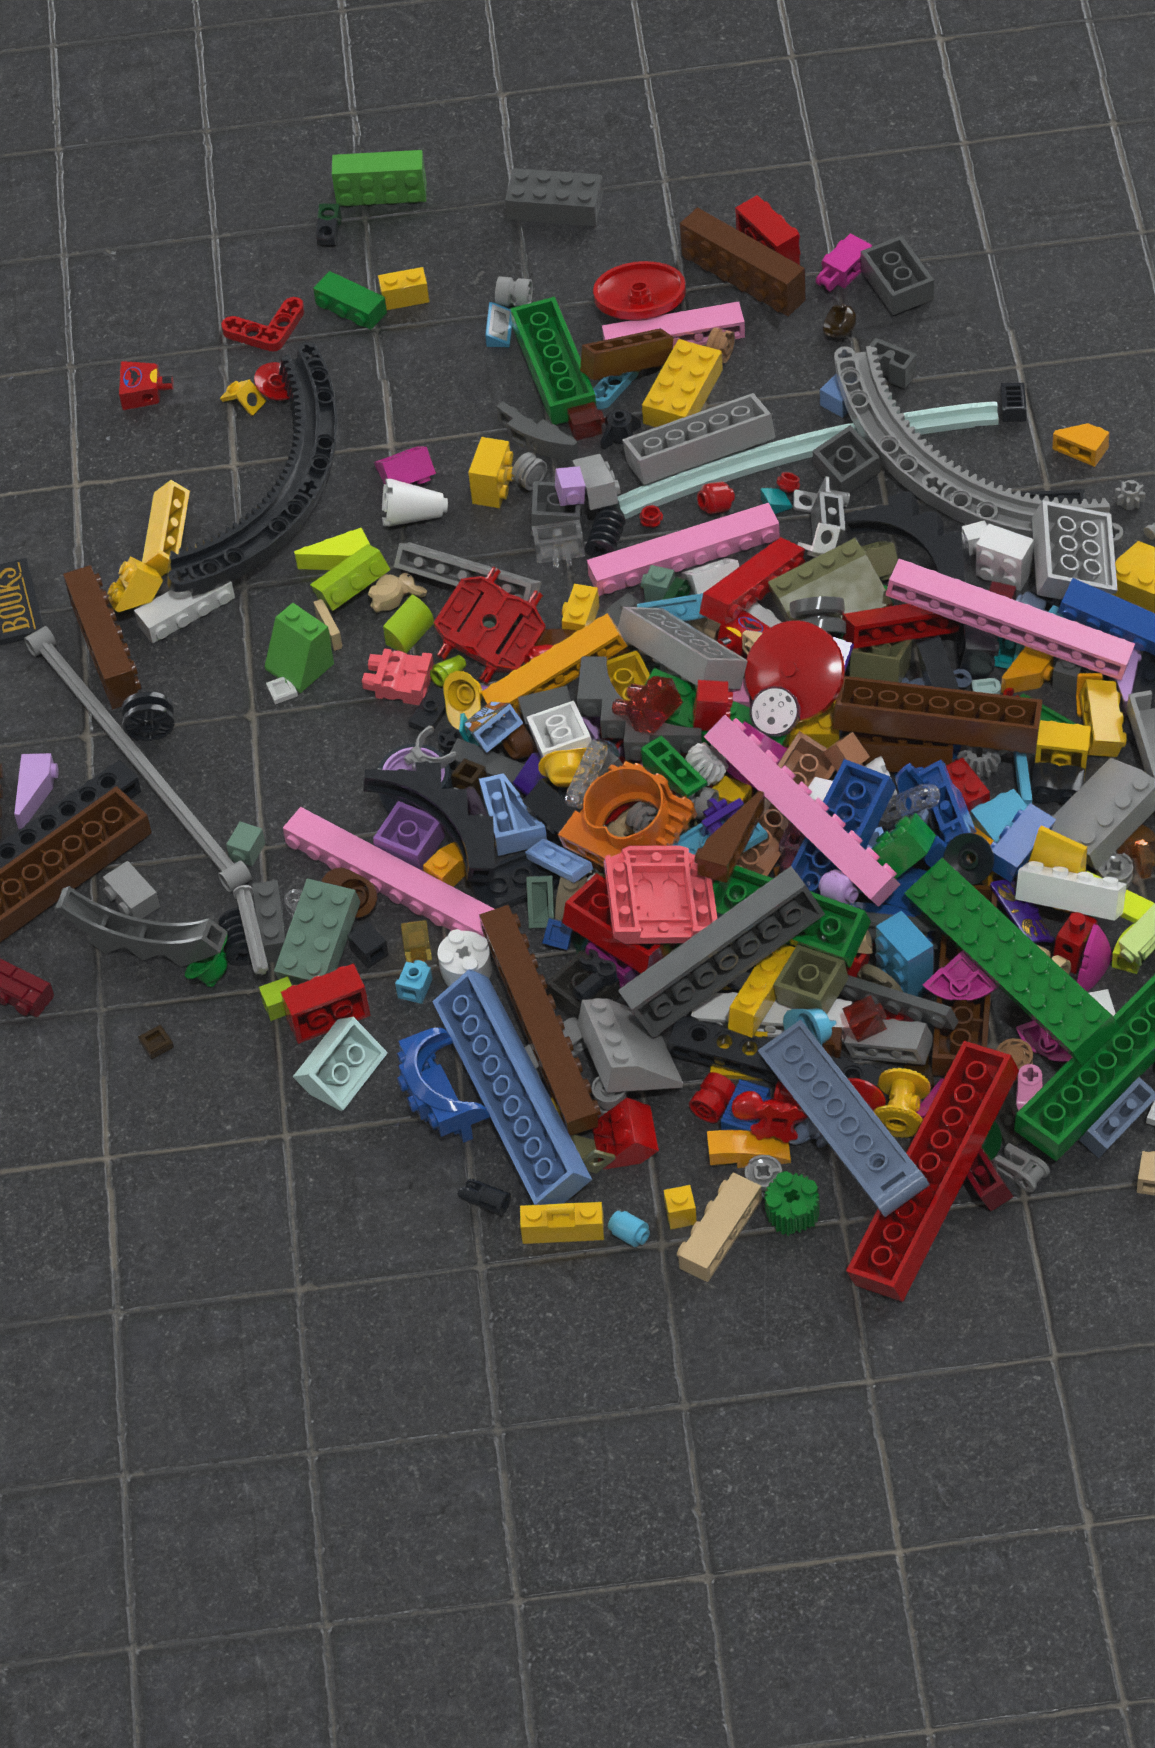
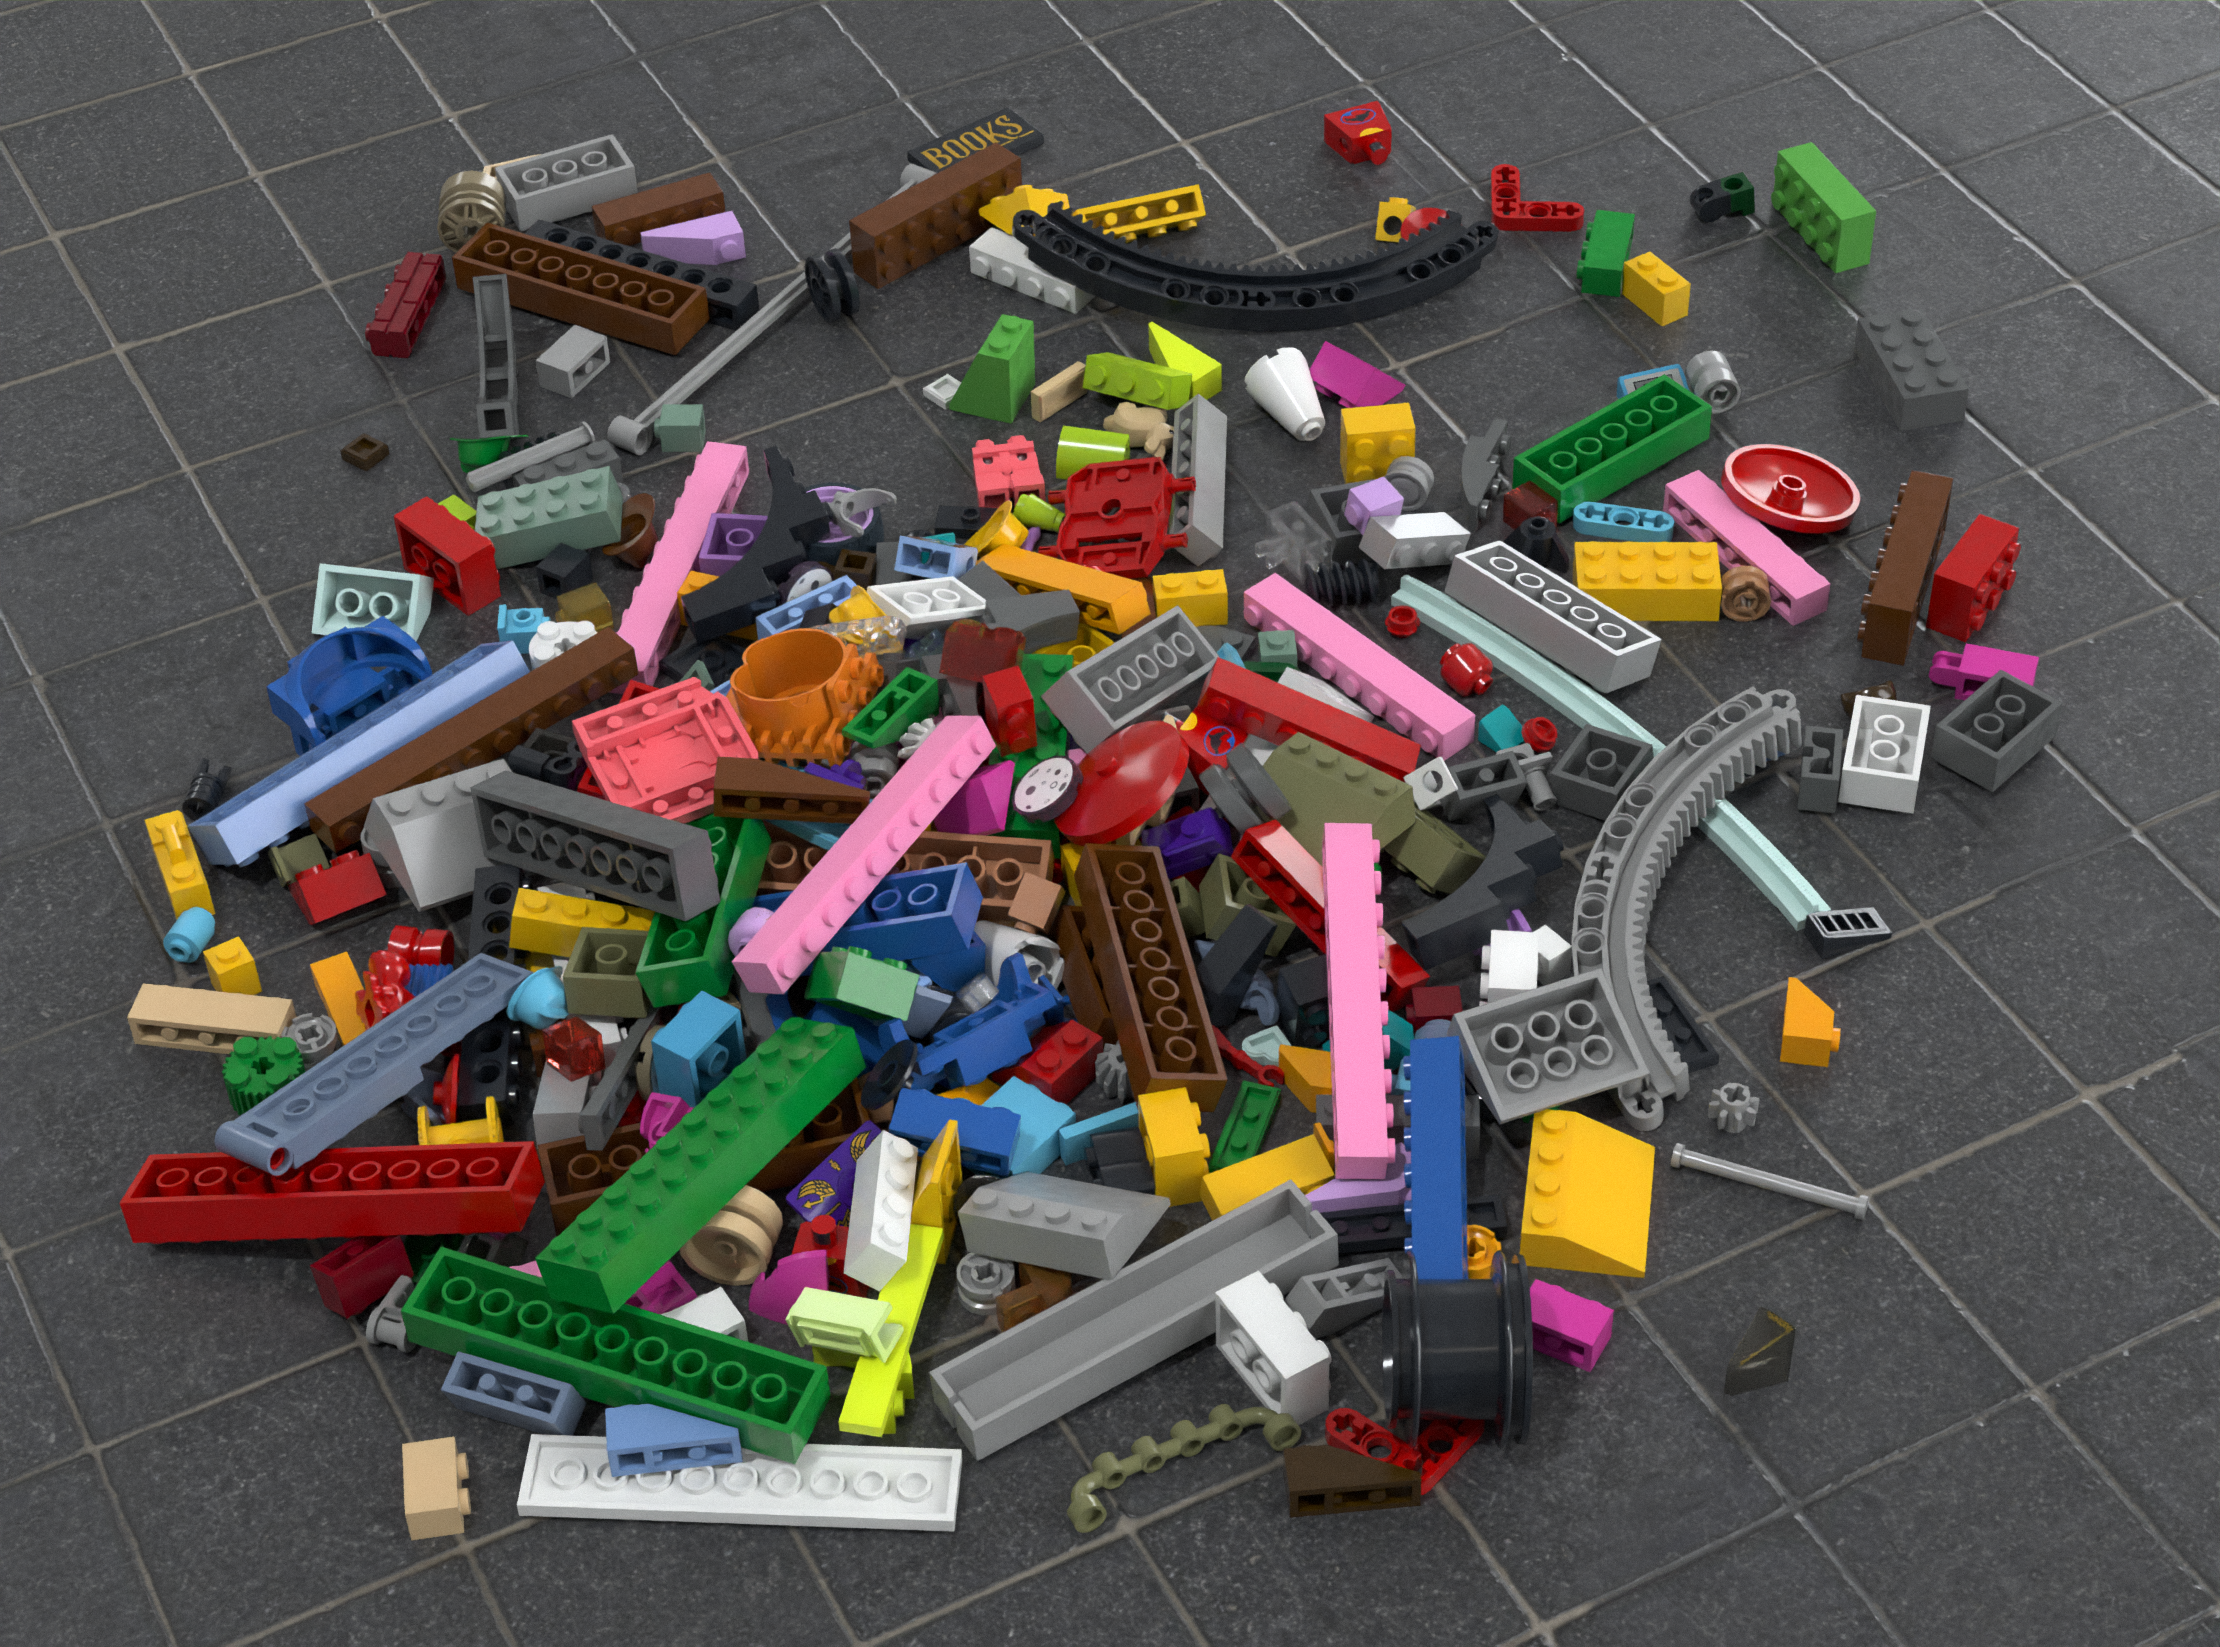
camera: 65 degrees right, 10 degrees down
(626, 354) = (1646, 493): reddish brown brick -> none
(891, 323) = (1884, 754): none -> white brick

